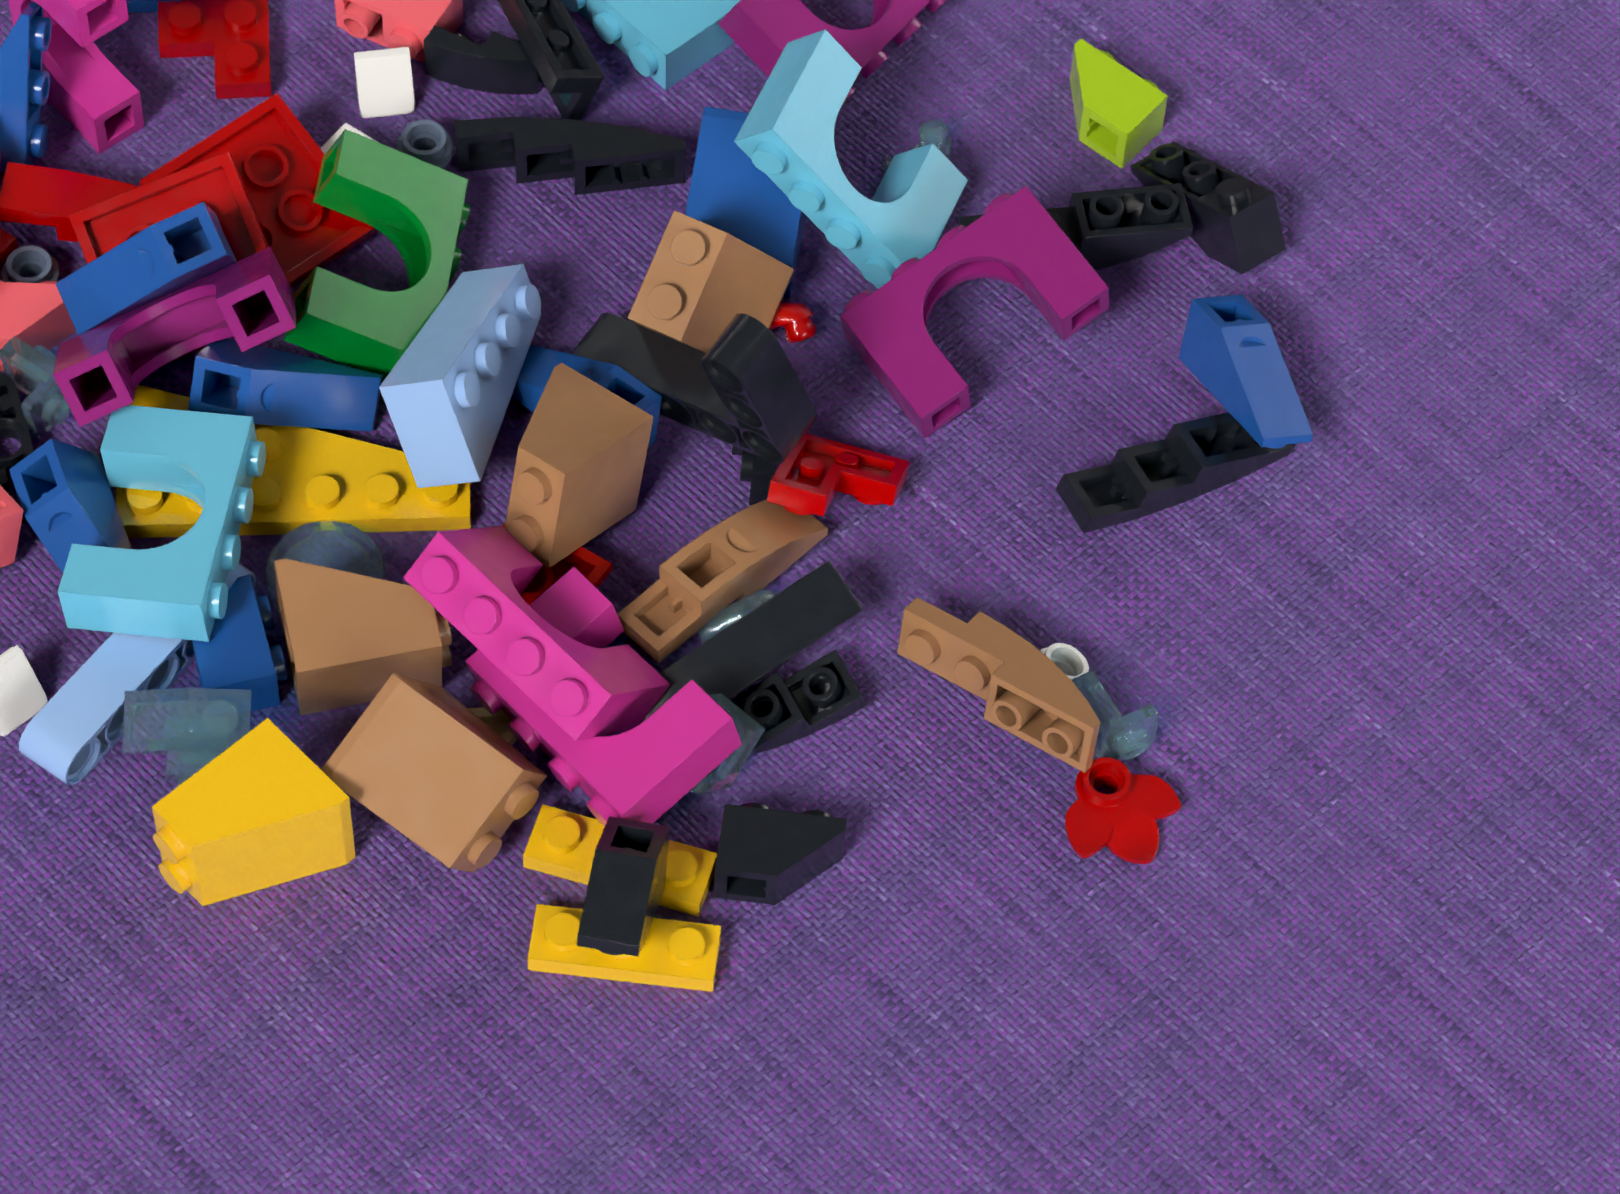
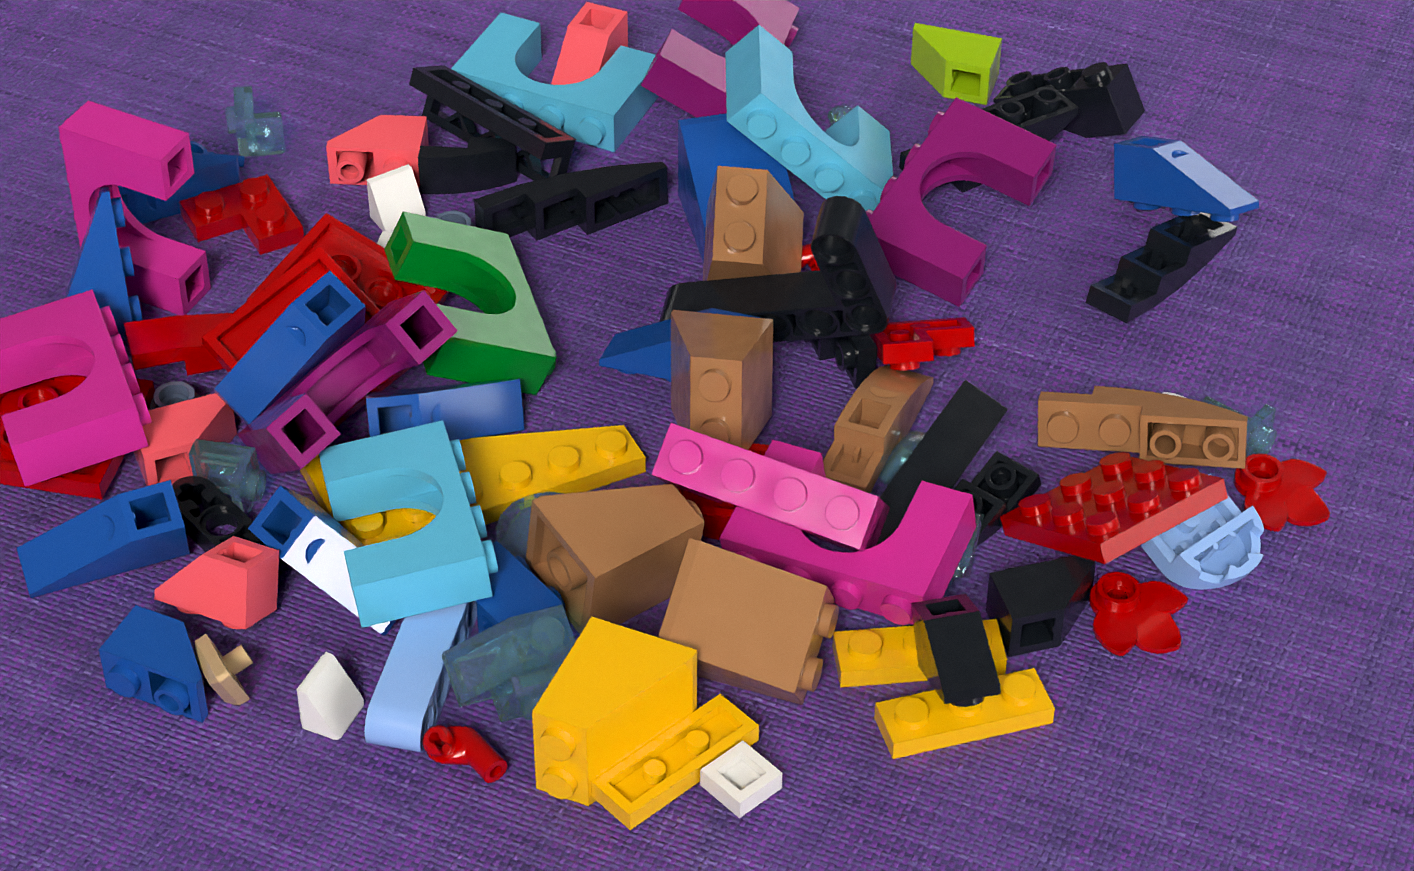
camera: 20 degrees left, 15 degrees down
(110, 796) = (464, 747): none -> red arm
(303, 893) = (672, 761): none -> yellow plate
(355, 939) = (741, 779): none -> white plate
(461, 374) = (591, 355): light blue wedge -> none
(869, 910) = (1135, 614): none -> red plate
(906, 771) = (1113, 507): none -> red plate
(992, 836) = (1209, 547): none -> light blue slope

